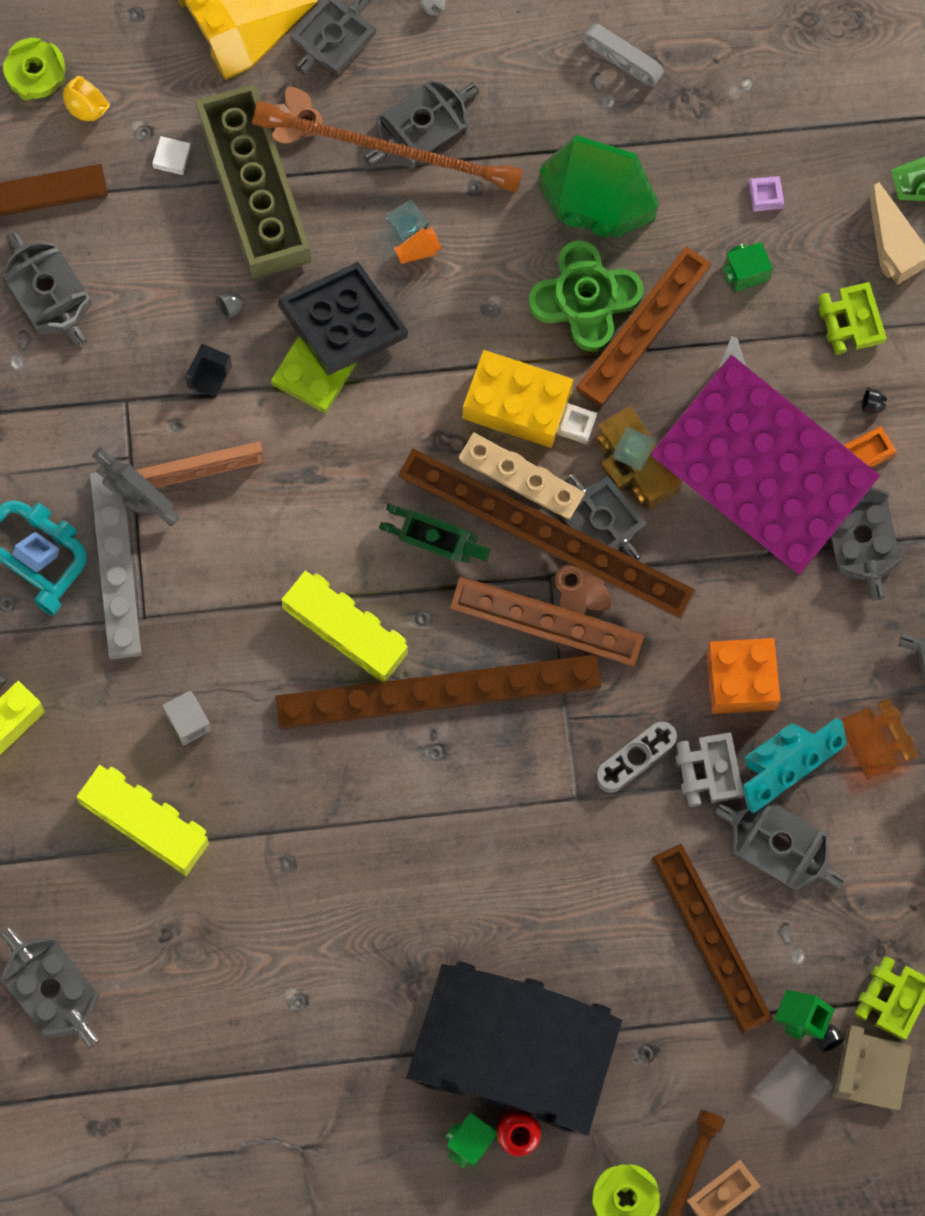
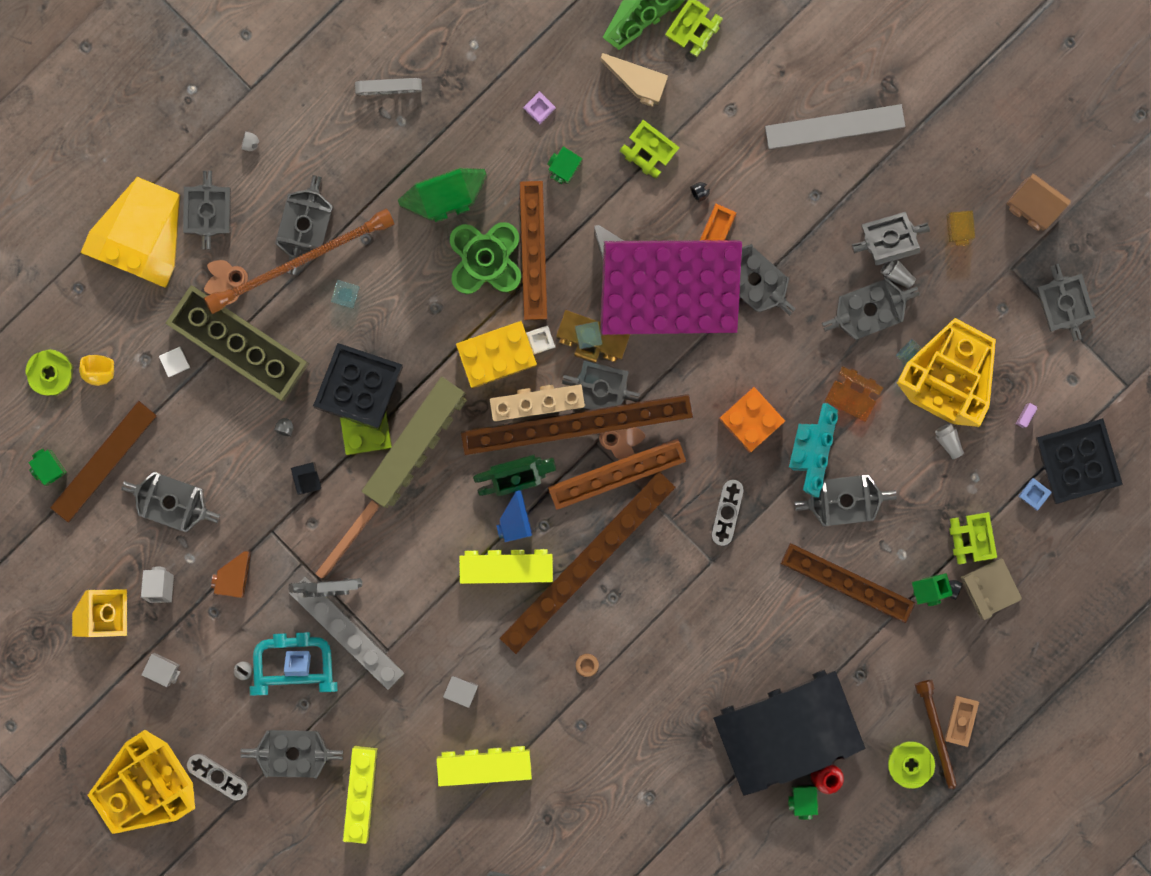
camera: 30 degrees left, 15 degrees up
(46, 410) = (232, 577): none -> dark orange slope
(347, 801) = (587, 665): none -> medium nougat tile
(355, 417) = (414, 442): none -> olive brick
(397, 580) = (514, 521): none -> blue slope
(418, 246) = (364, 304): orange cone -> none
(719, 766) = (779, 483): light grey plate -> none
(793, 1088) = (954, 631): clear piece -> none

